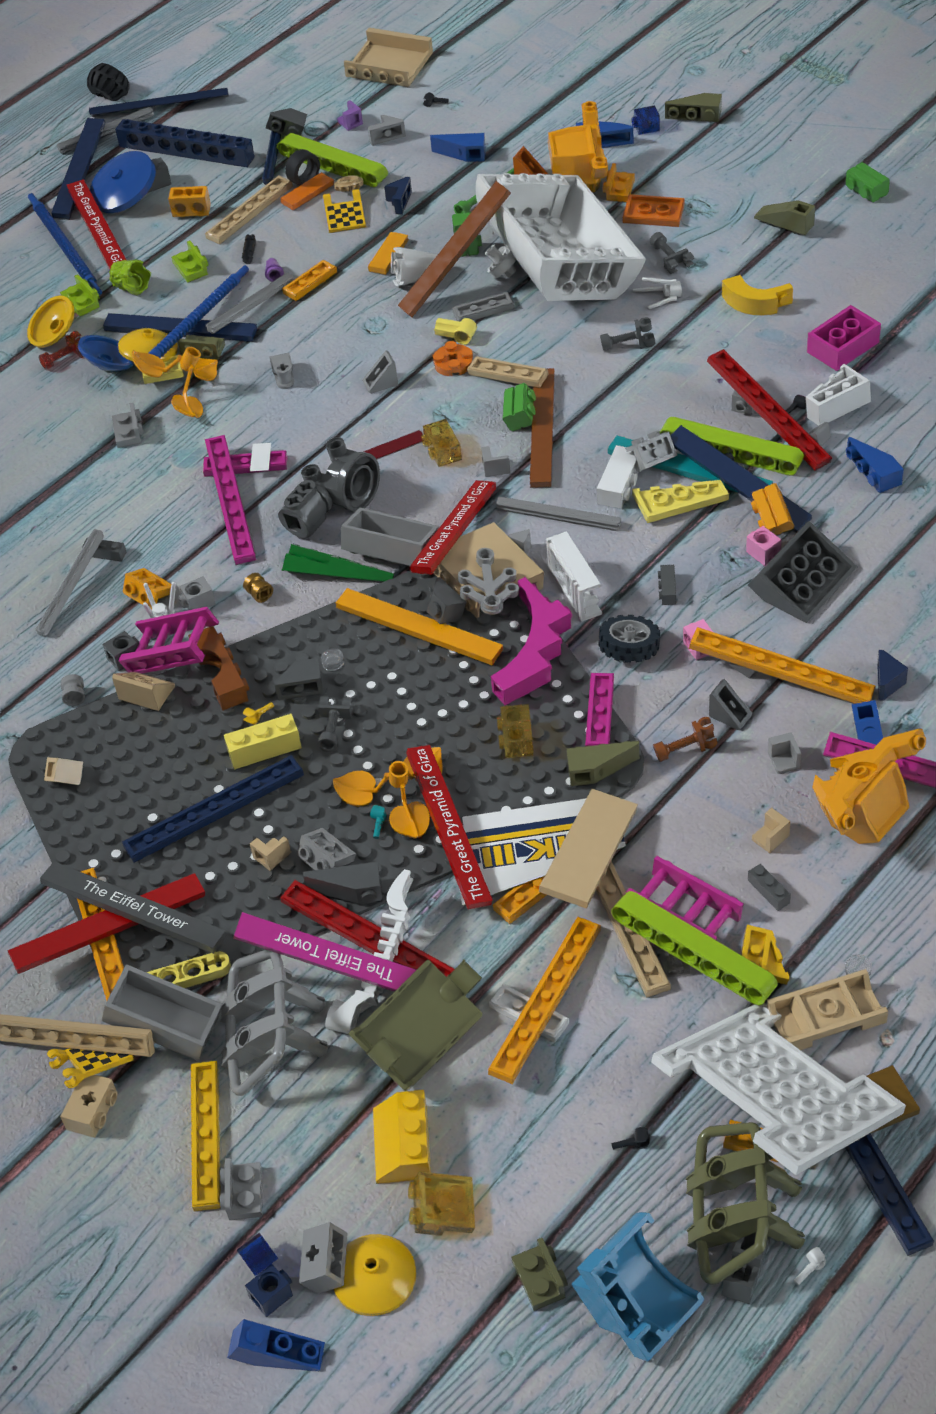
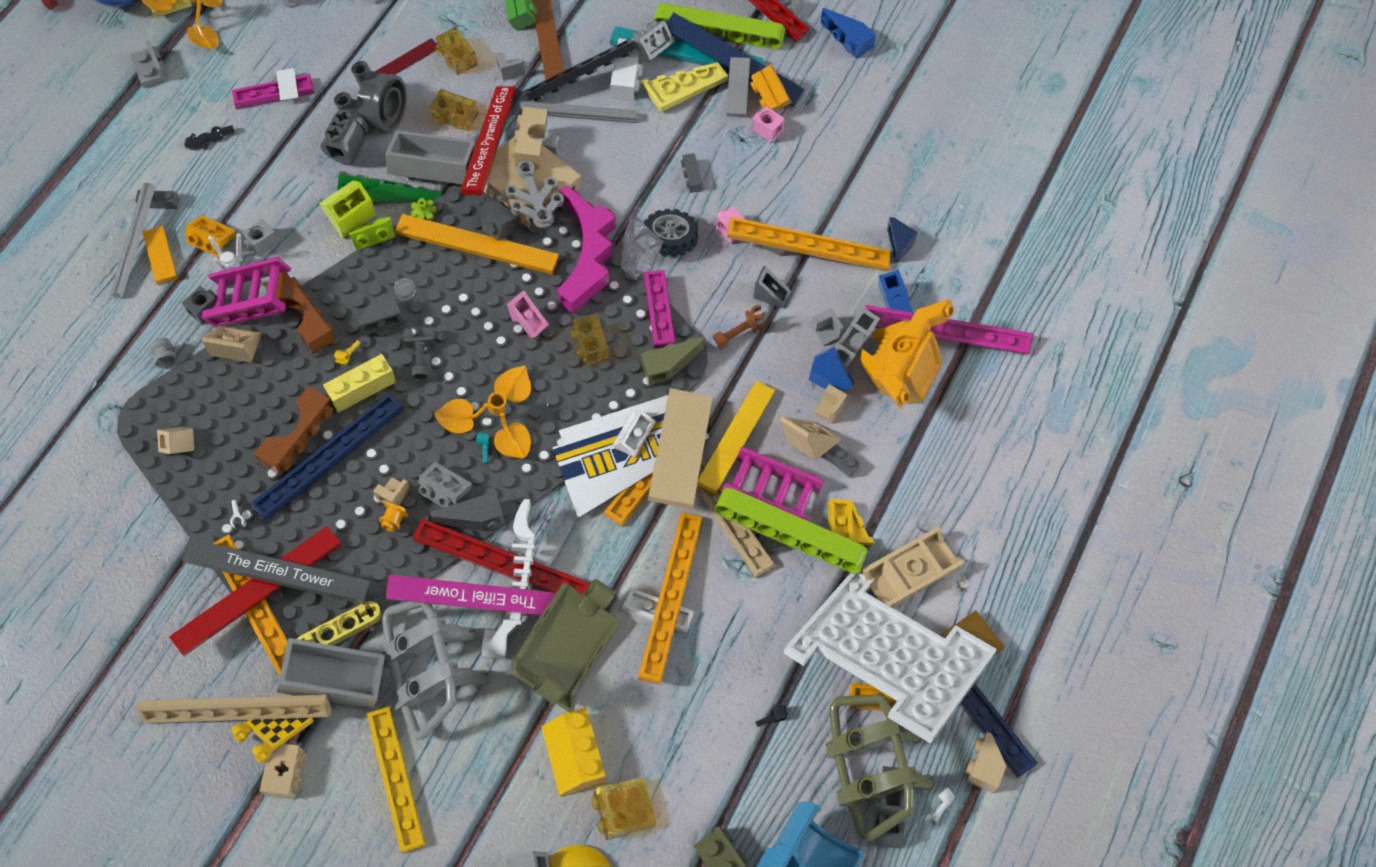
camera: 20 degrees left, 15 degrees up
(93, 601) = (160, 255): none -> light orange tile
(106, 851) = (236, 516): none -> white hand
(163, 500) = (203, 139): none -> black animal
(164, 796) = (280, 452): none -> dark orange arch
(230, 500) = (268, 132): dark pink tile -> none
(242, 1190) = (443, 827): light grey bracket -> none
(258, 587) = (314, 220): pearl gold wheel -> none
(265, 873) = (392, 517): none -> light orange brick
(293, 576) = (348, 208): none -> neon yellow slope
(311, 603) = (372, 233): none -> lime bracket
(370, 586) = (423, 209): none -> lime plant
(426, 497) = (454, 109): none -> clear yellow brick
(449, 827) = (551, 445): red tile -> none
(453, 696) = (527, 314): none -> bright pink slope
(493, 532) = (532, 125): none -> tan arch
(543, 829) = (634, 432): none -> white slope
(558, 475) = (586, 67): none -> black plate
(573, 575) = (608, 176): white door -> none
(590, 648) = (639, 249): none -> clear slope
(659, 844) = (735, 437): none -> yellow tile
(735, 858) = (808, 436): none -> tan slope
(737, 505) = (738, 86): none -> light grey tile
(776, 792) = (831, 370): none -> blue slope
(798, 777) = (856, 335): none -> light grey arch
(803, 574) = (808, 148): dark grey slope -> none
(870, 1233) = (987, 766): none -> tan slope

